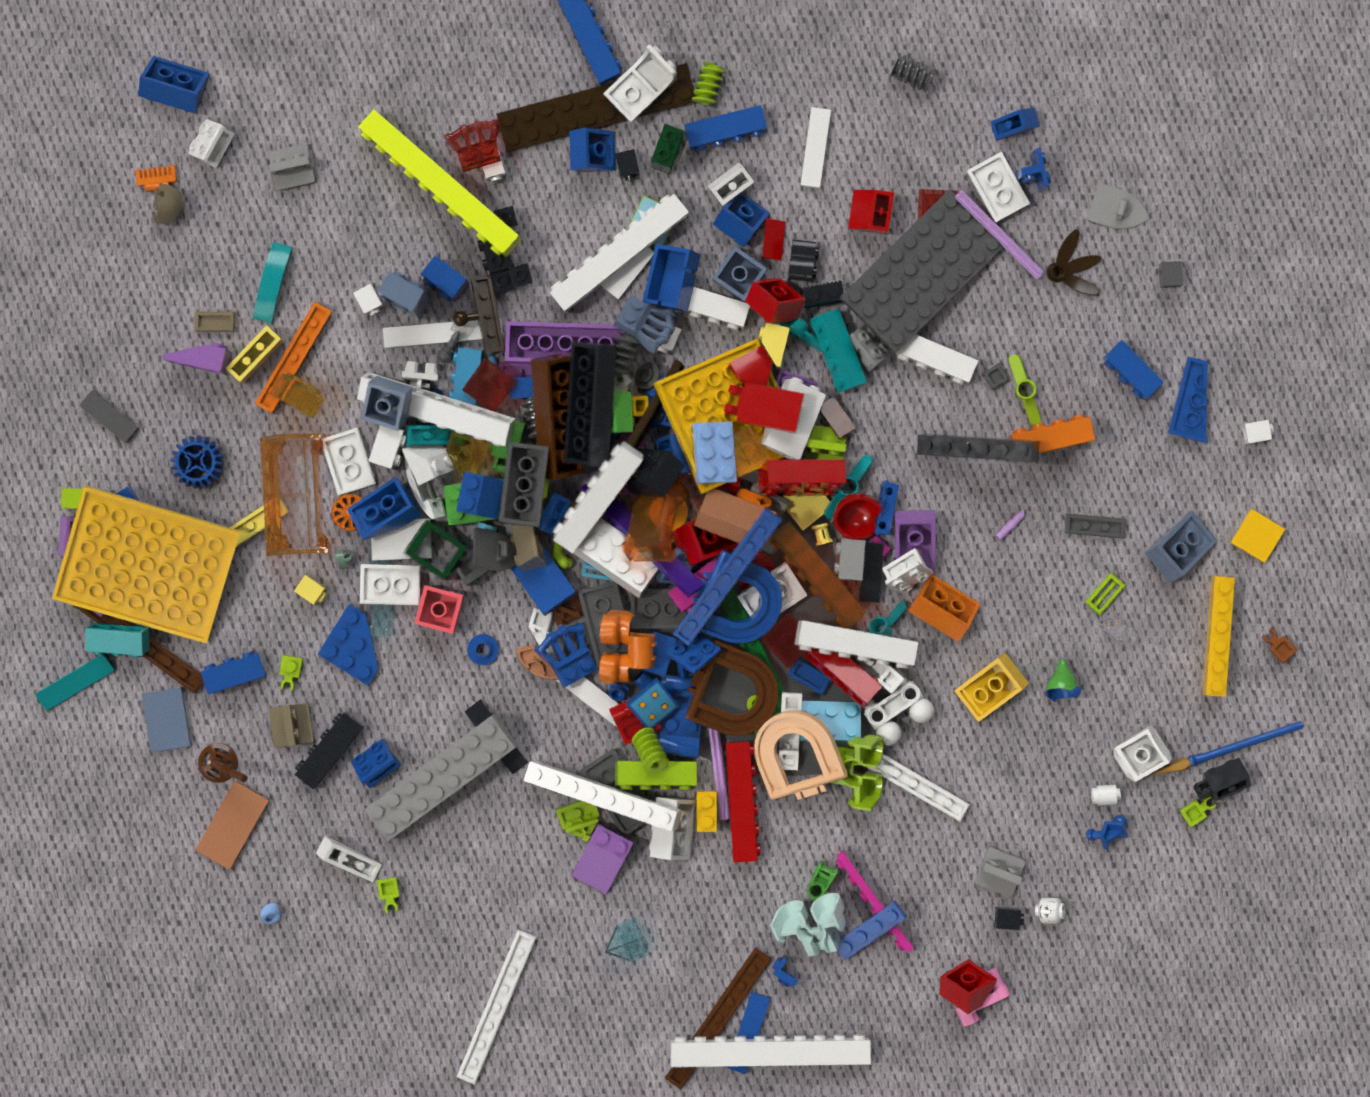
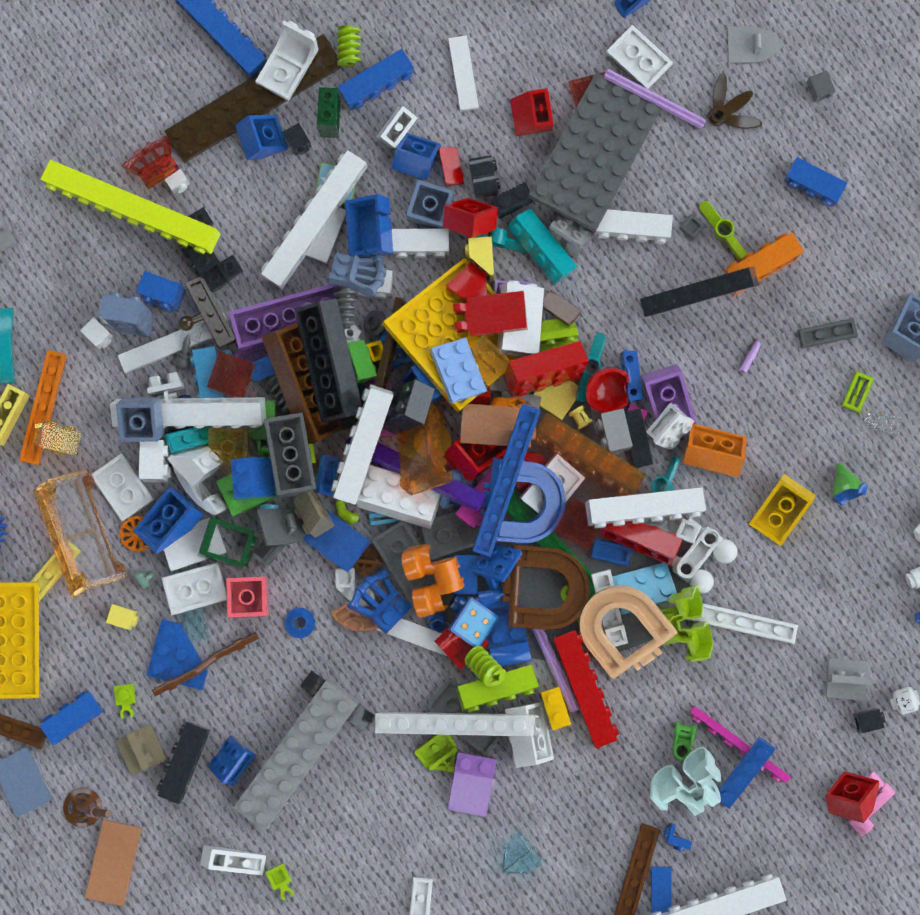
camera: 15 degrees left, 5 degrees down
(341, 670) = (238, 644): none -> reddish brown bar
(1036, 171) = (669, 31): blue bracket -> none
(1191, 402) = (878, 198): blue wing -> none

